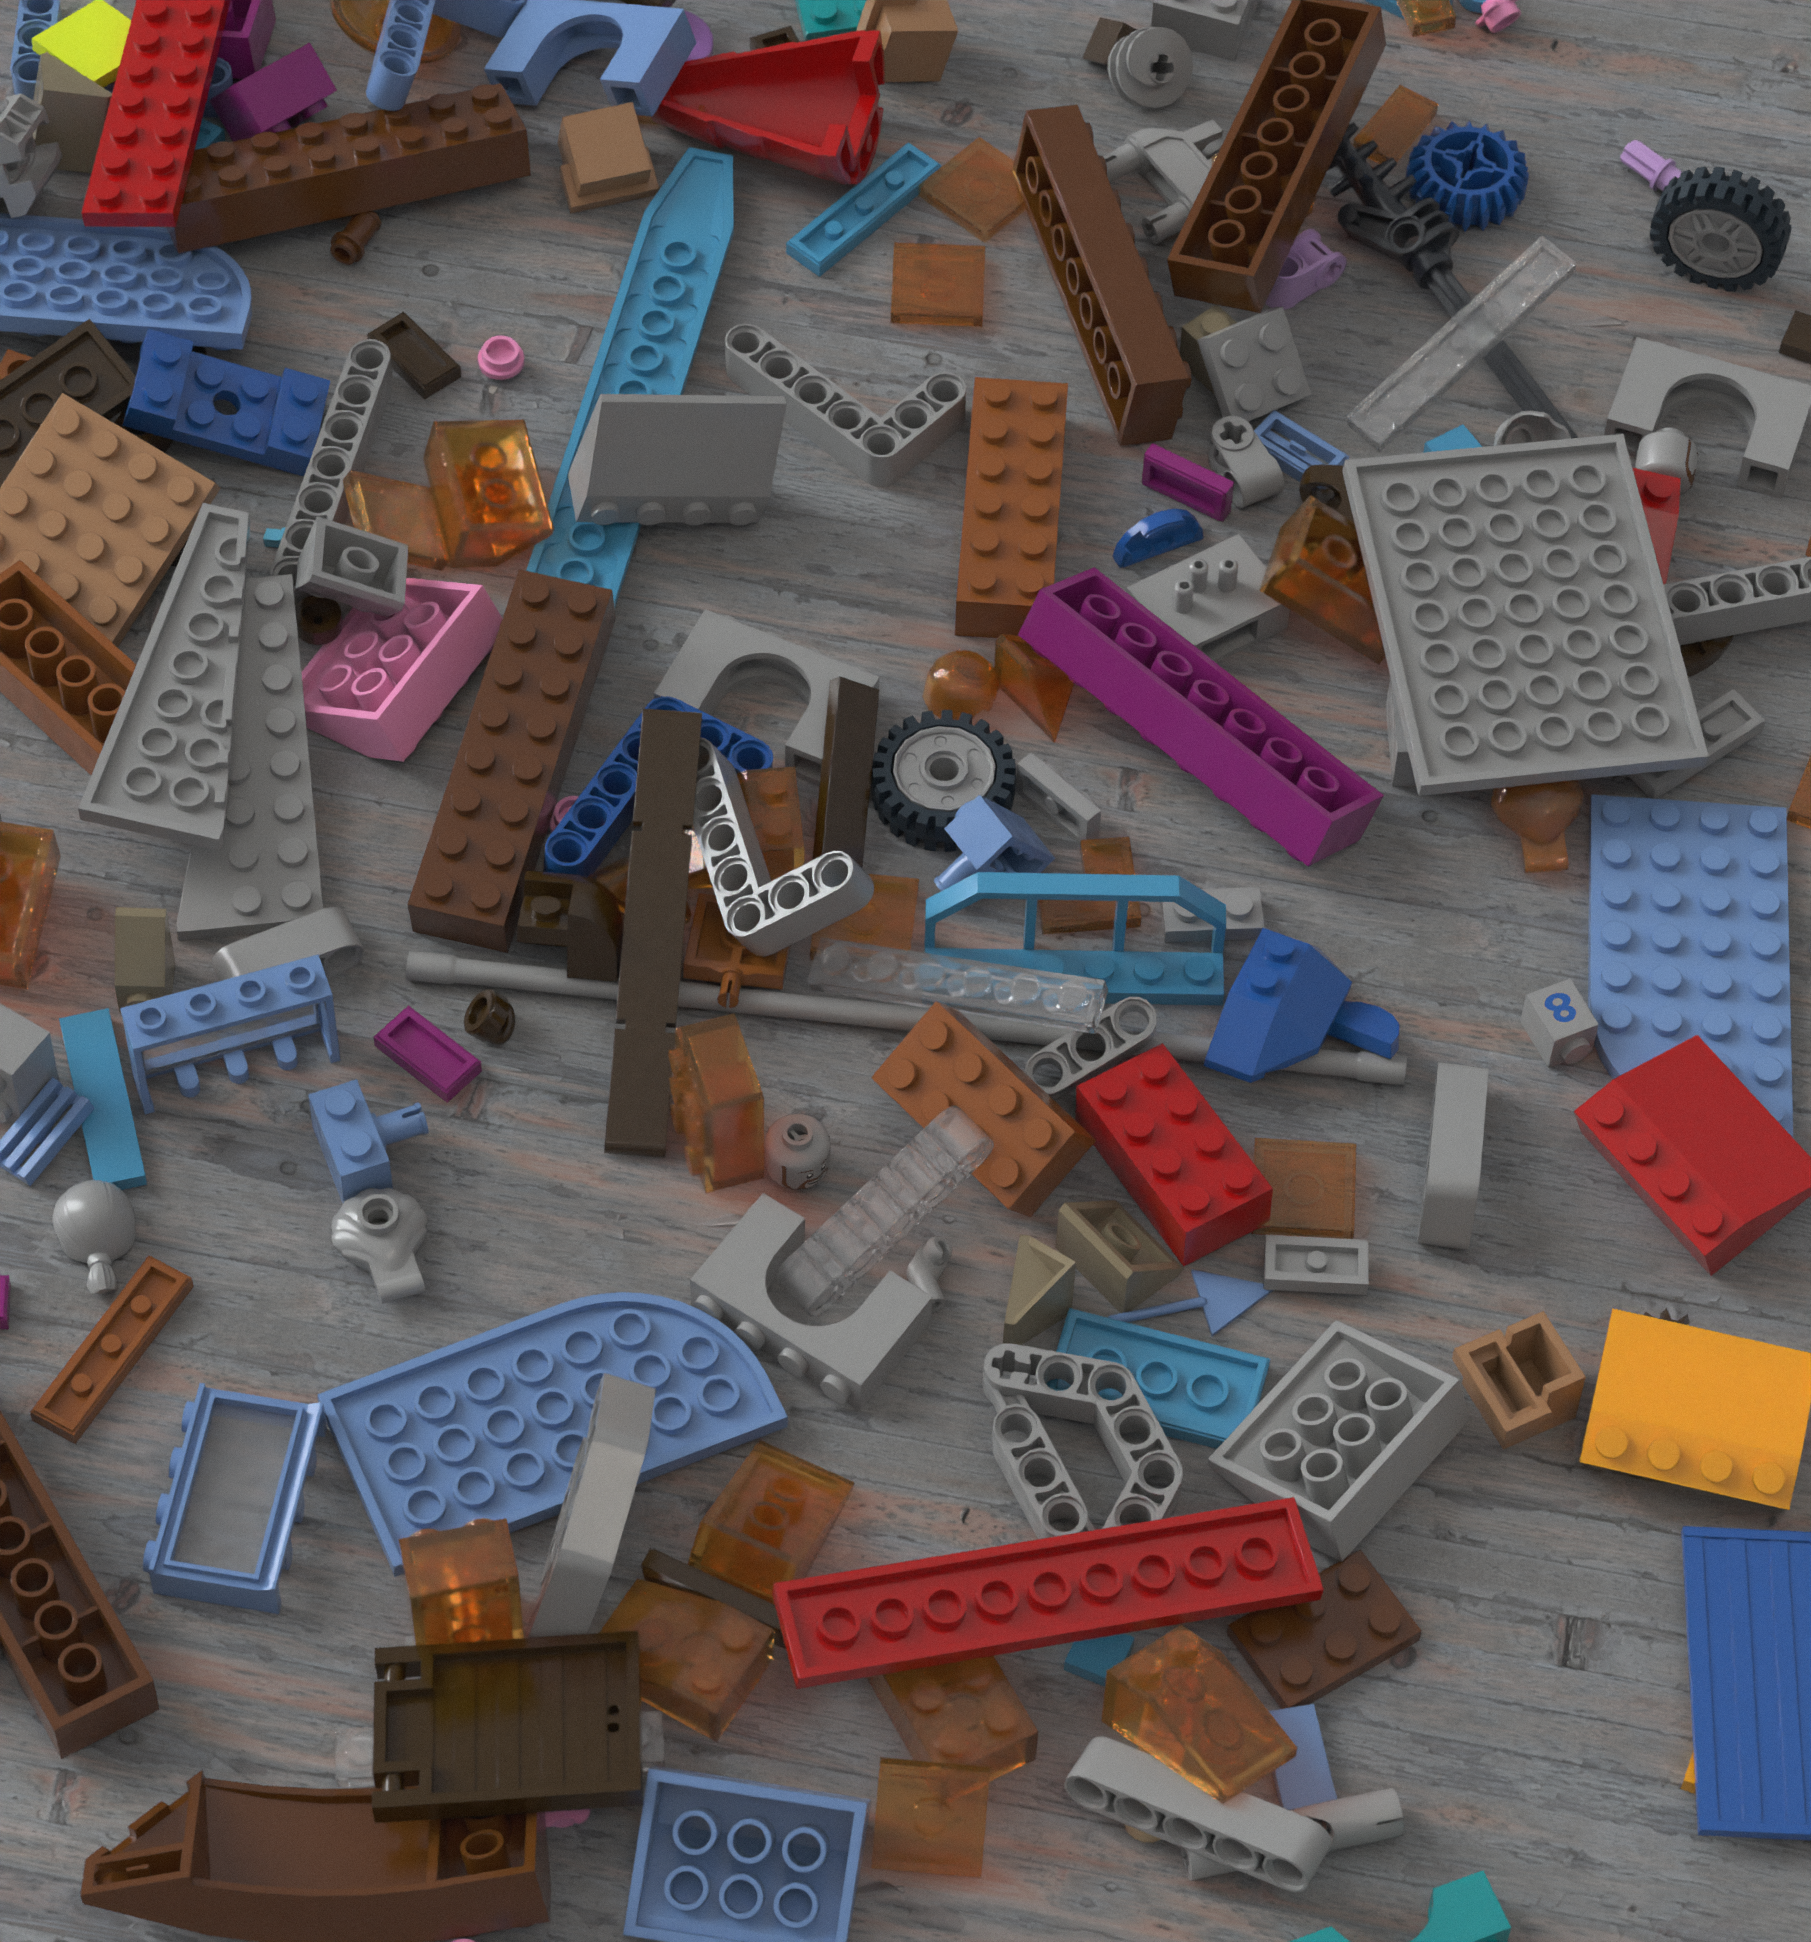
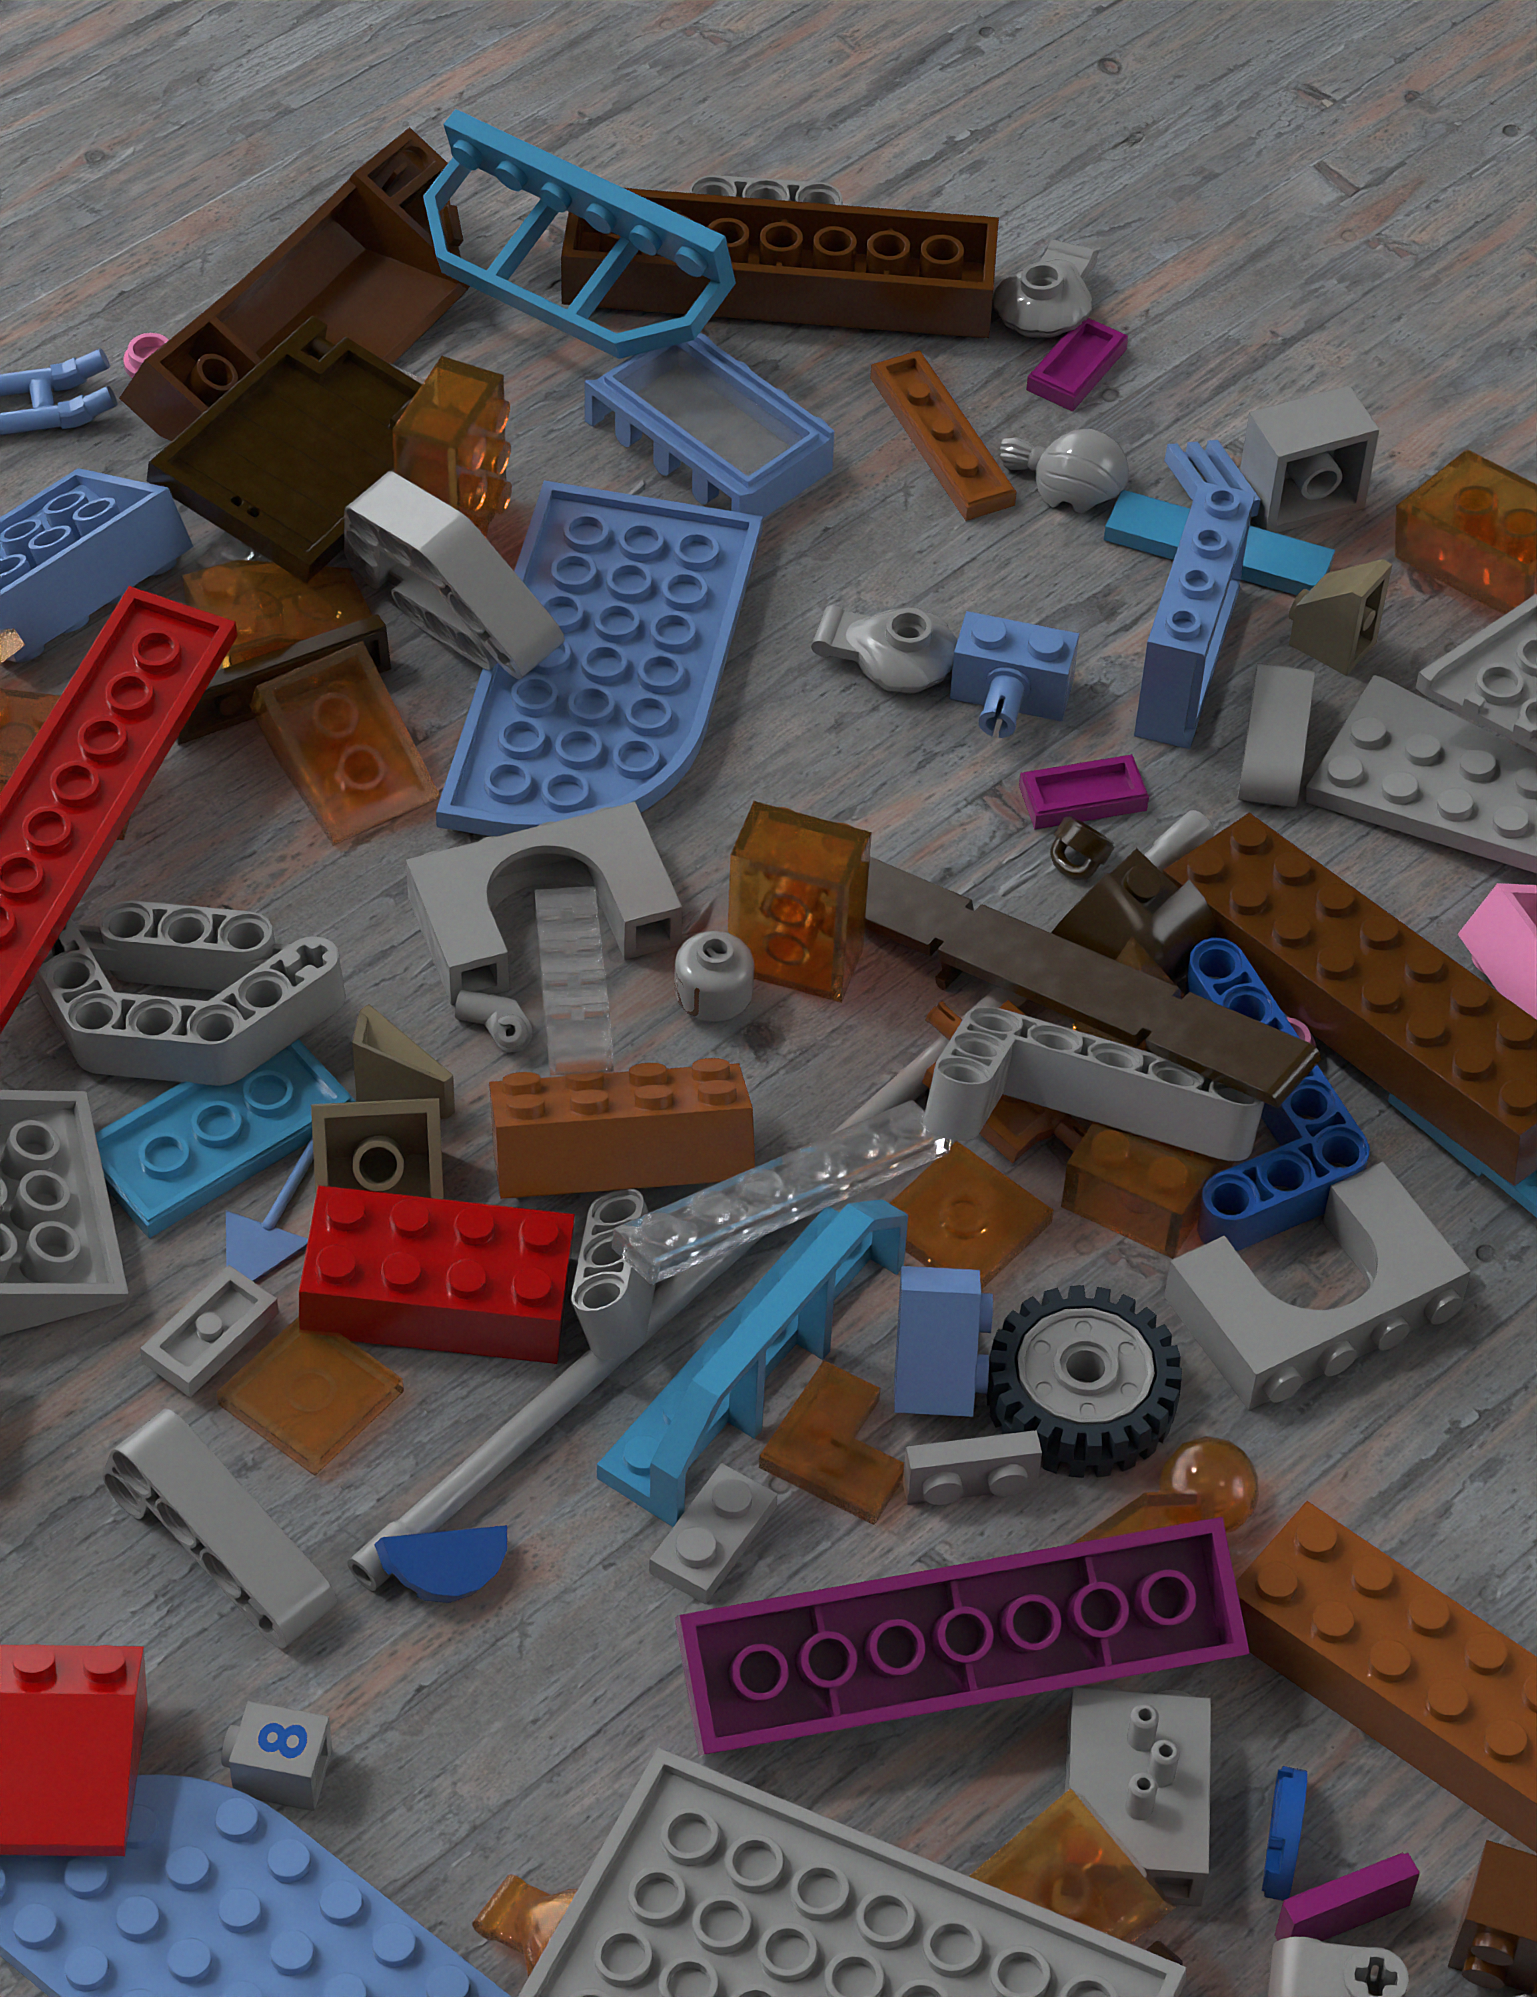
camera: 125 degrees right, 5 degrees down
(117, 1673) = (606, 208): none -> dark azure plate
(846, 769) = (1143, 1268): dark brown tile -> none
(1277, 1008) = (534, 1488): blue wedge -> none

